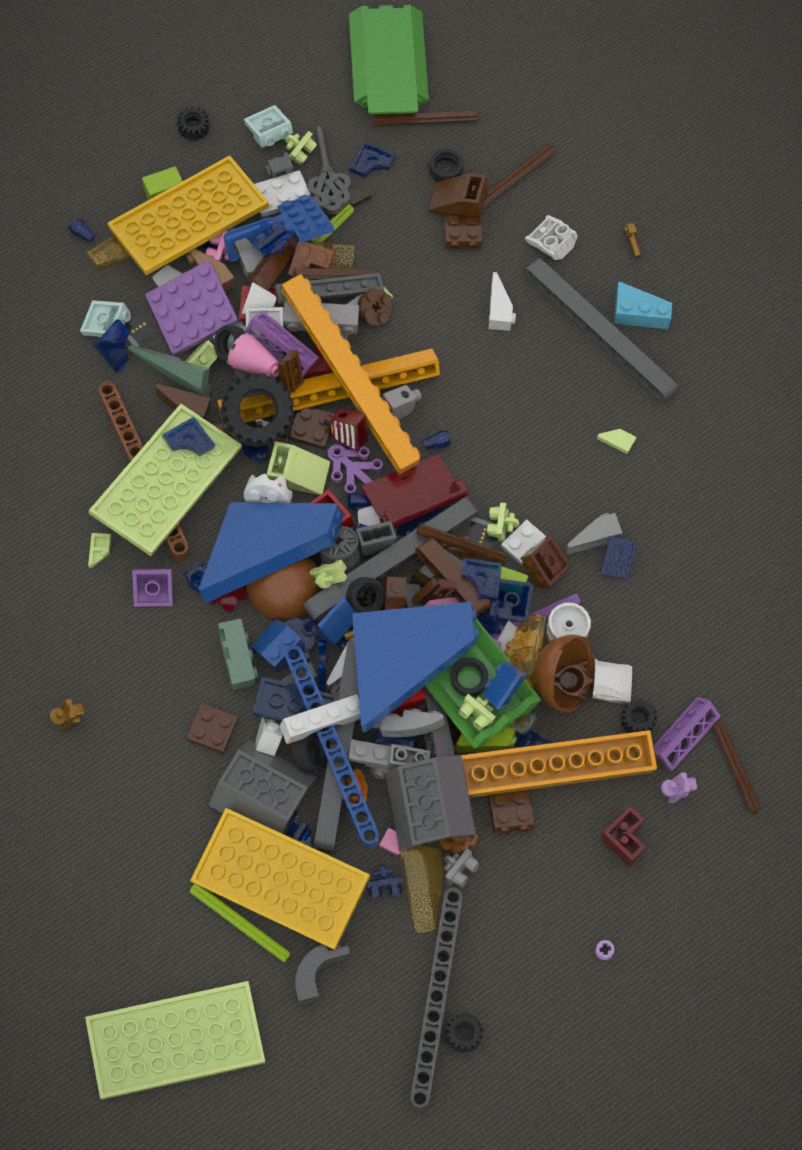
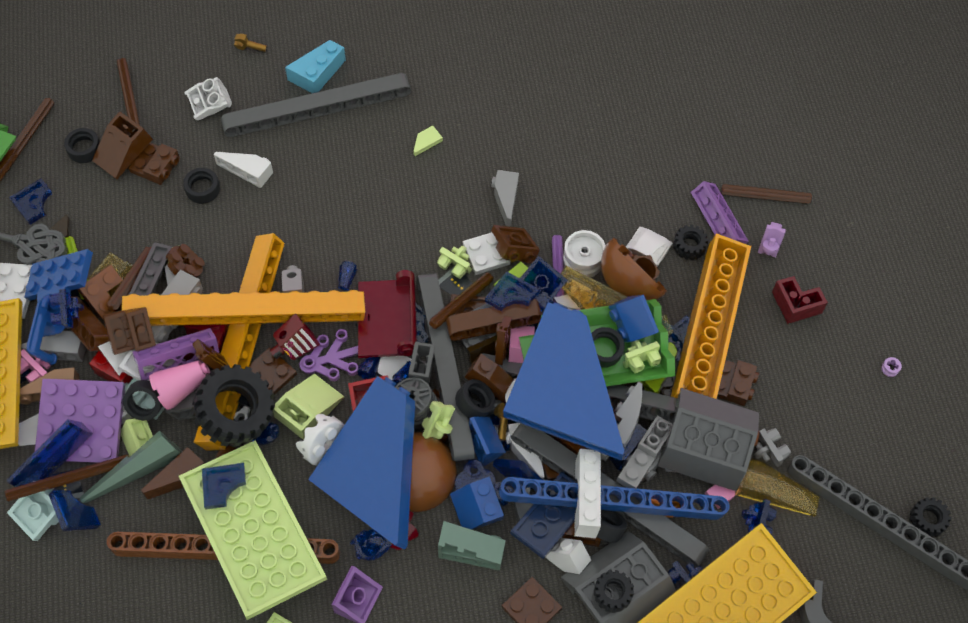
camera: 60 degrees left, 5 degrees down
(136, 323) = (62, 479): none -> reddish brown axle
(150, 302) = (51, 453): none -> clear blue slope
(248, 766) = (623, 582): none -> black tyre
(275, 296) = (129, 330): none -> reddish brown slope
(457, 292) = (201, 197): none -> black tyre
(618, 557) = (538, 187): clear blue plate -> none

